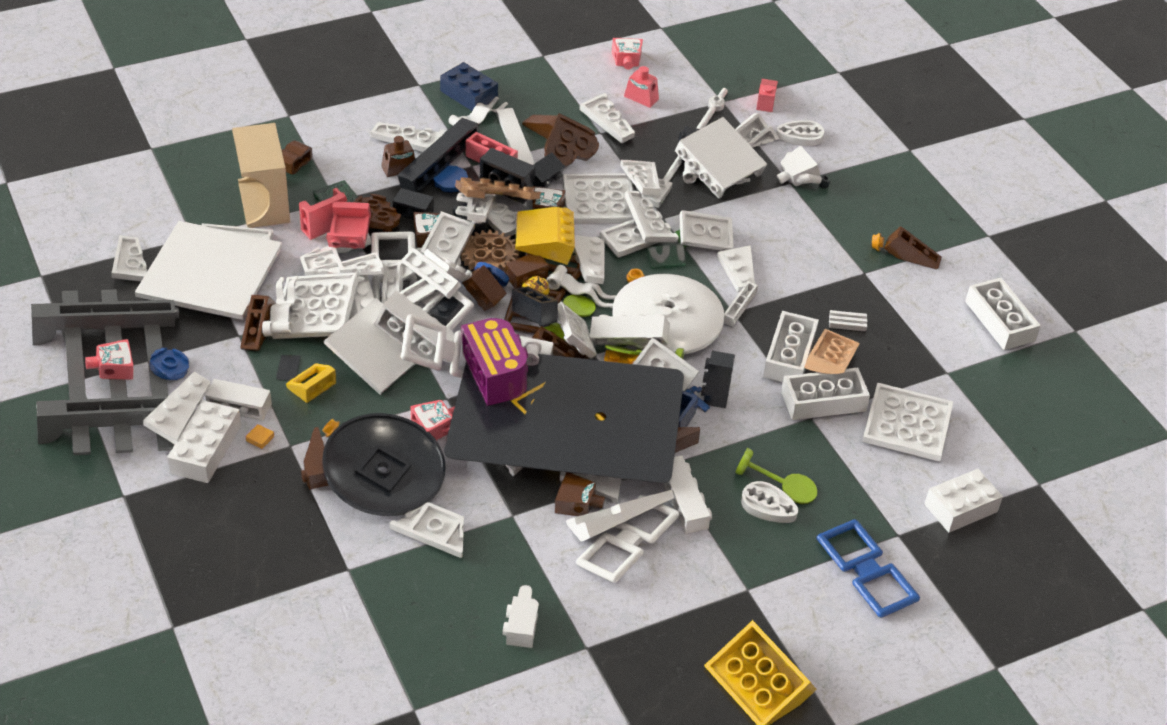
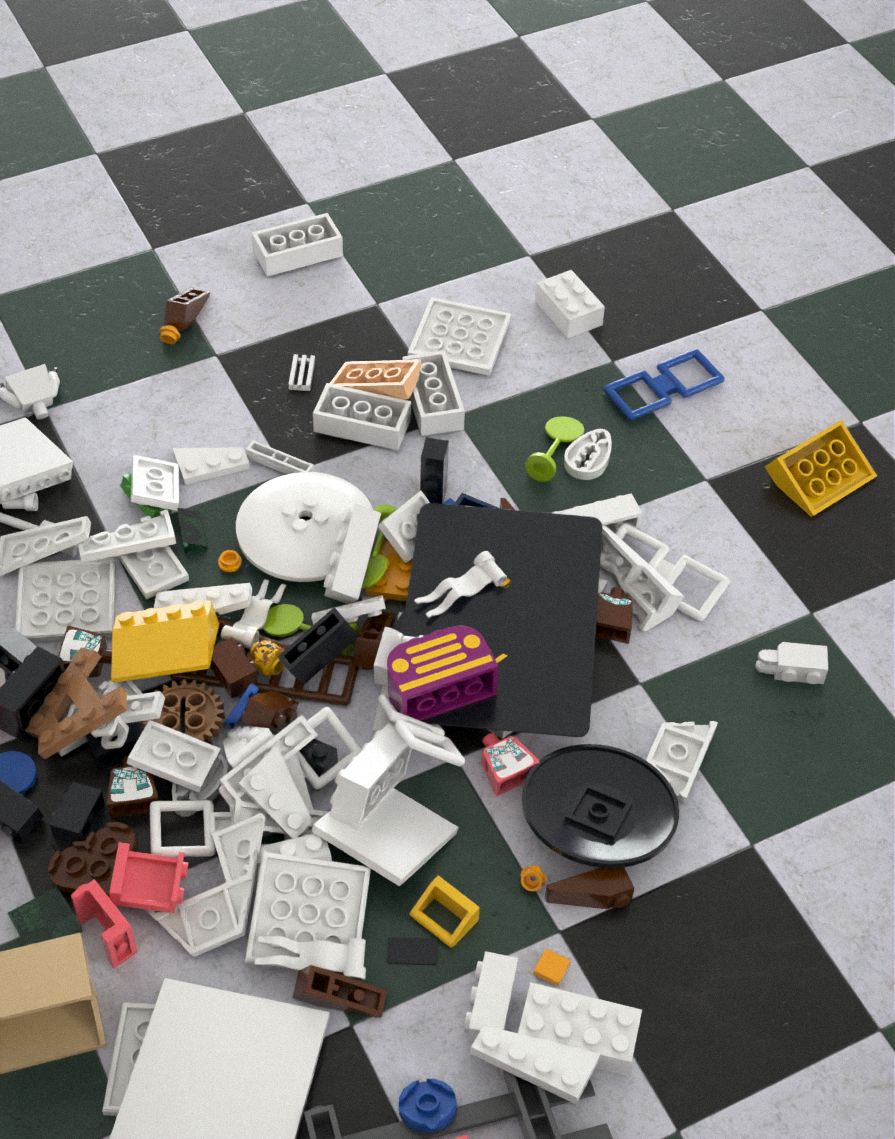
camera: 90 degrees left, 5 degrees up
(406, 276) = (276, 794): none -> white wing
(593, 390) = (469, 584): none -> white flag

